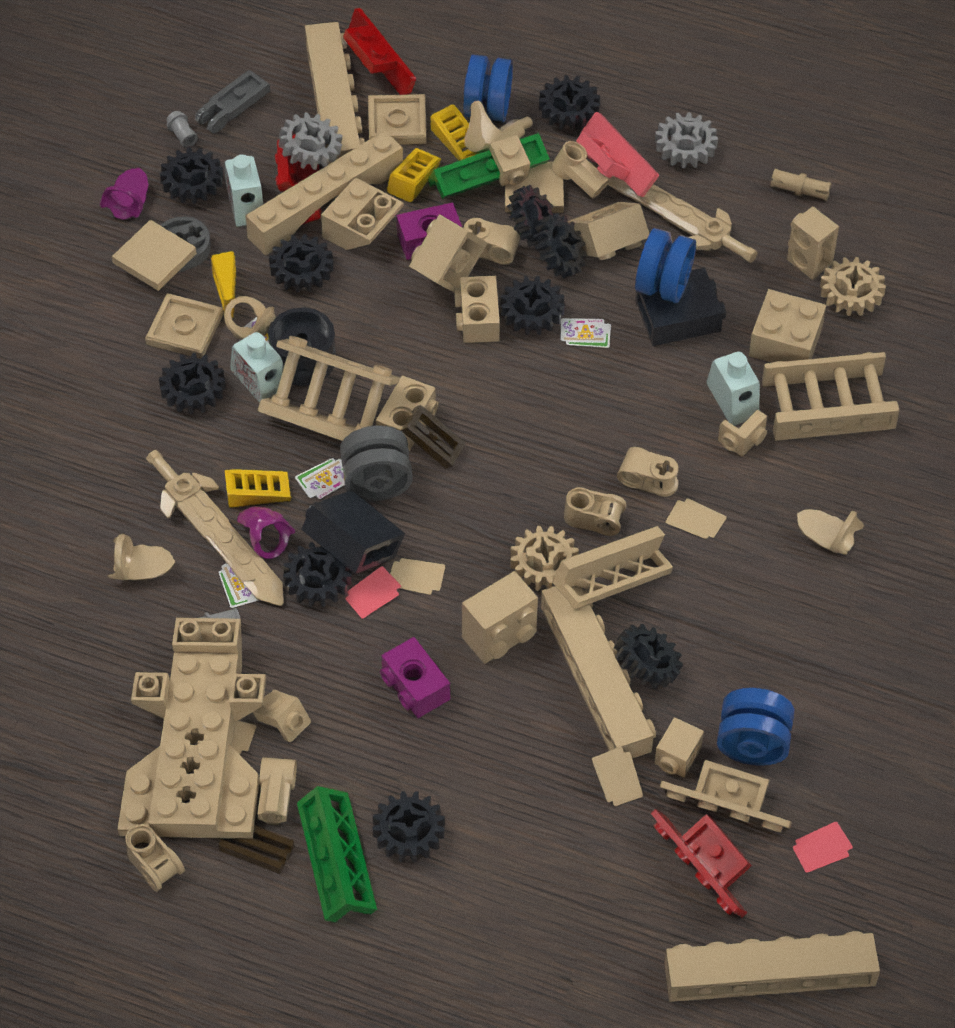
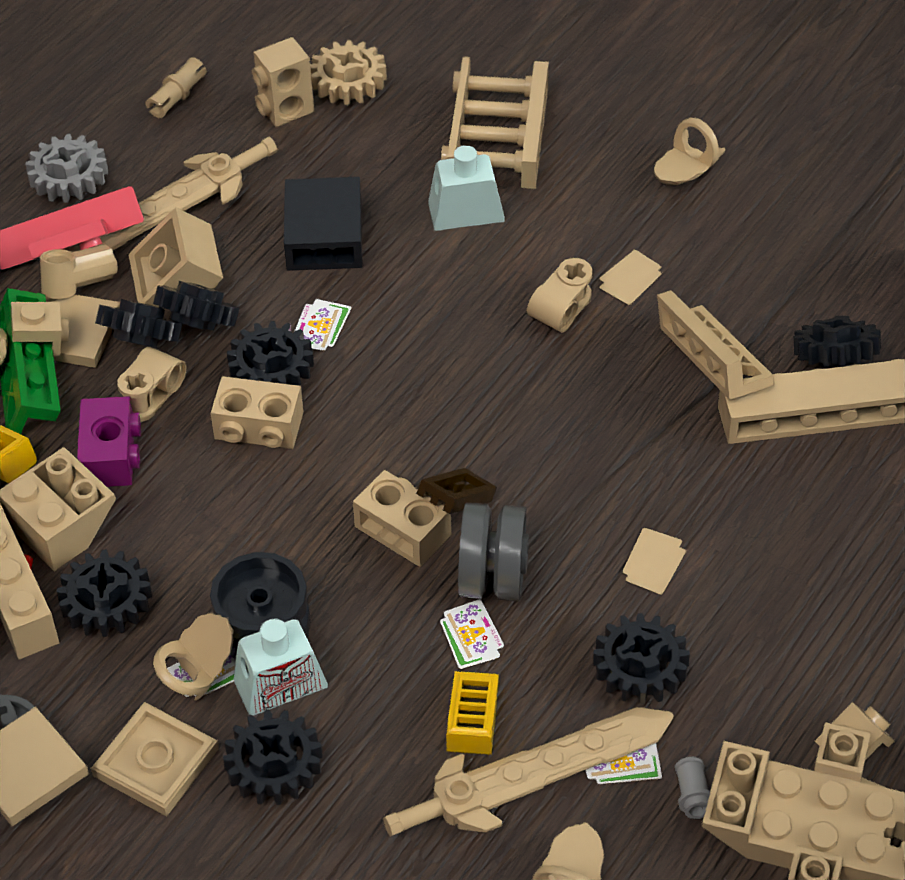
camera: 75 degrees left, 5 degrees down
(225, 277) = (105, 688): yellow slope -> none
(256, 519) = (543, 705): magenta piece -> none
(307, 413) = (401, 596): tan fence -> none
(352, 531) = (593, 598): black brick -> none
(373, 592) = (673, 606): coral sticker -> none
(411, 661) = (804, 577): magenta brick -> none
(447, 253) = (177, 410): tan brick -> none
(499, 617) = (764, 465): tan brick -> none
(528, 557) = (668, 417): tan gear -> none
(594, 511) = (608, 360): tan piece -> none
(665, 265) = (296, 190): blue wheel -> none
(743, 439) = (532, 200): tan bracket -> none
(786, 328) = (395, 135): tan brick -> none

